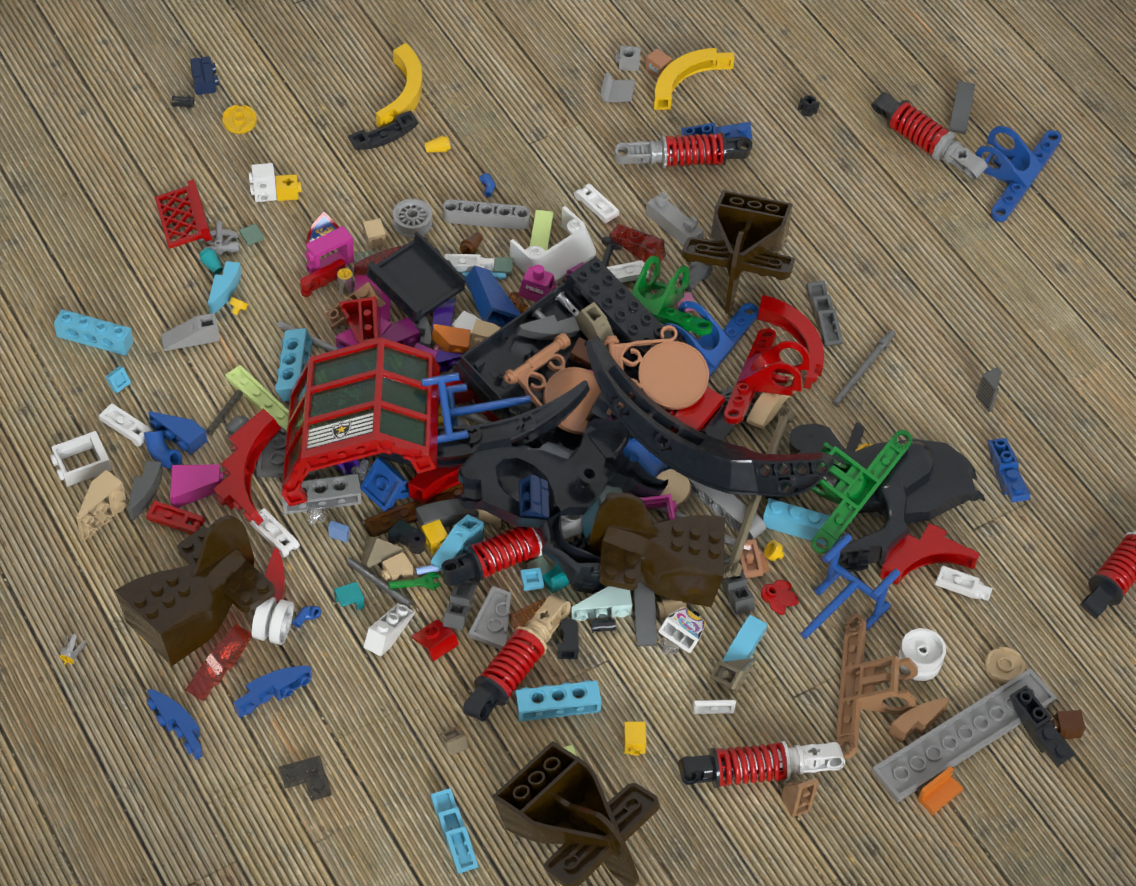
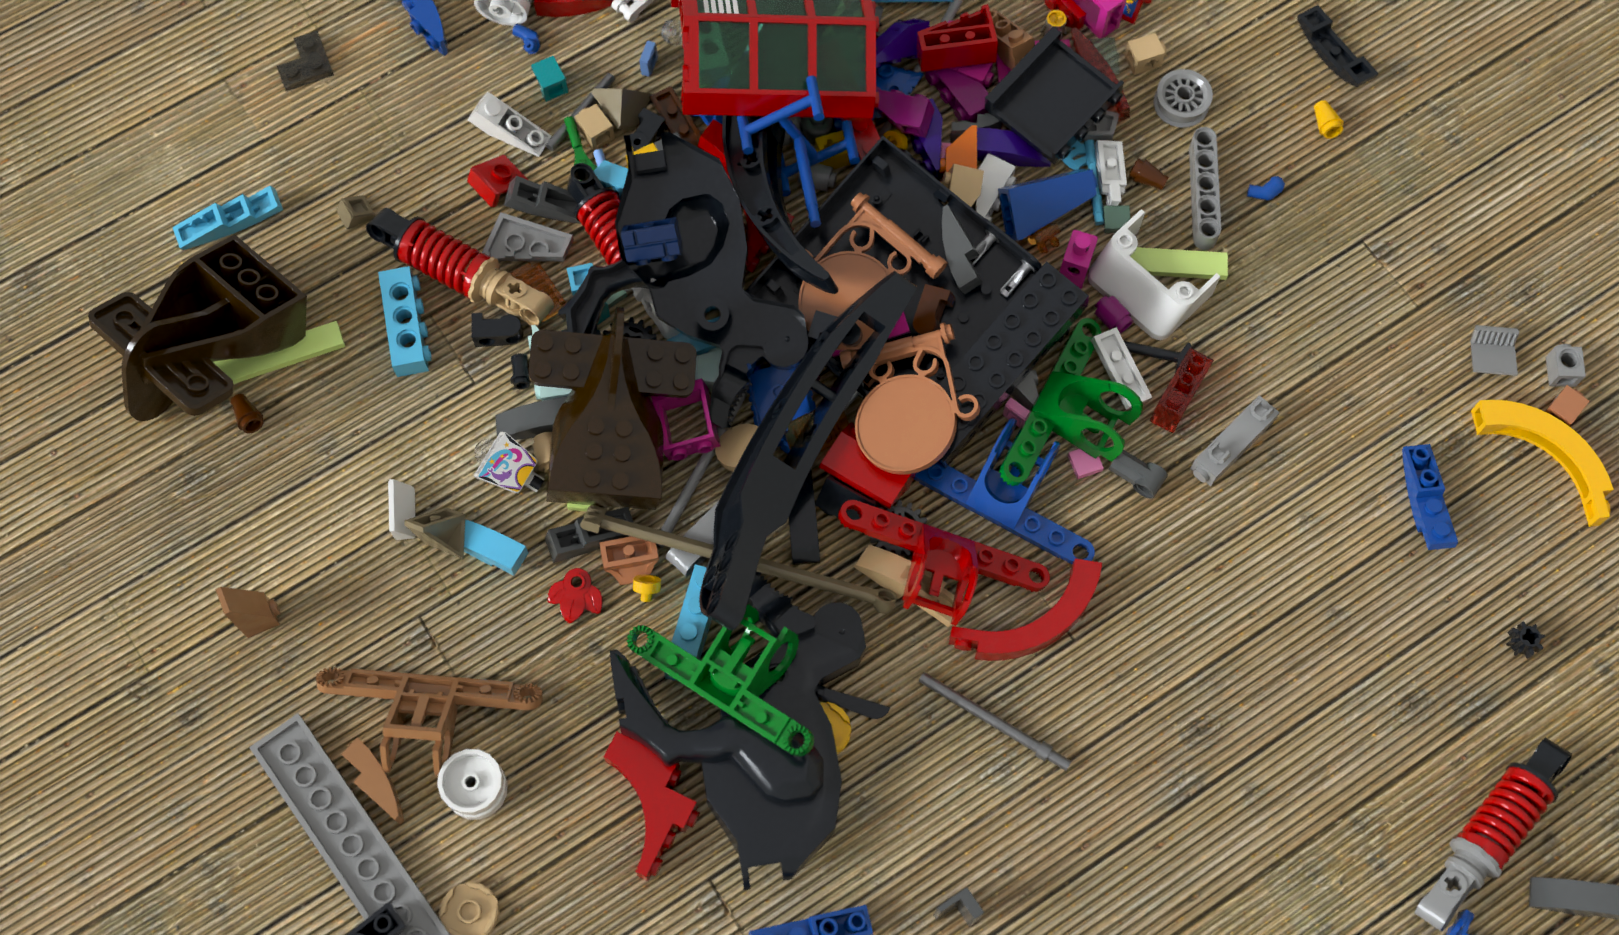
camera: 90 degrees right, 15 degrees up
(409, 64) = (1431, 78): yellow arch -> none
(594, 322) = (971, 318): dark tan slope -> none
(597, 203) = (1255, 333): white plate -> none
(634, 738) = (348, 413): yellow brick -> none
(684, 149) = (1378, 448): piece -> none
(746, 239) = (1203, 521): dark brown brick -> none
(759, 763) = (300, 563): piece -> none
(824, 314) = (1090, 661): dark grey slope -> none
(834, 571) = (544, 717): blue piece -> none
(939, 791) = (263, 808): orange panel -> none
(963, 584) = (603, 853): white hinge -> none

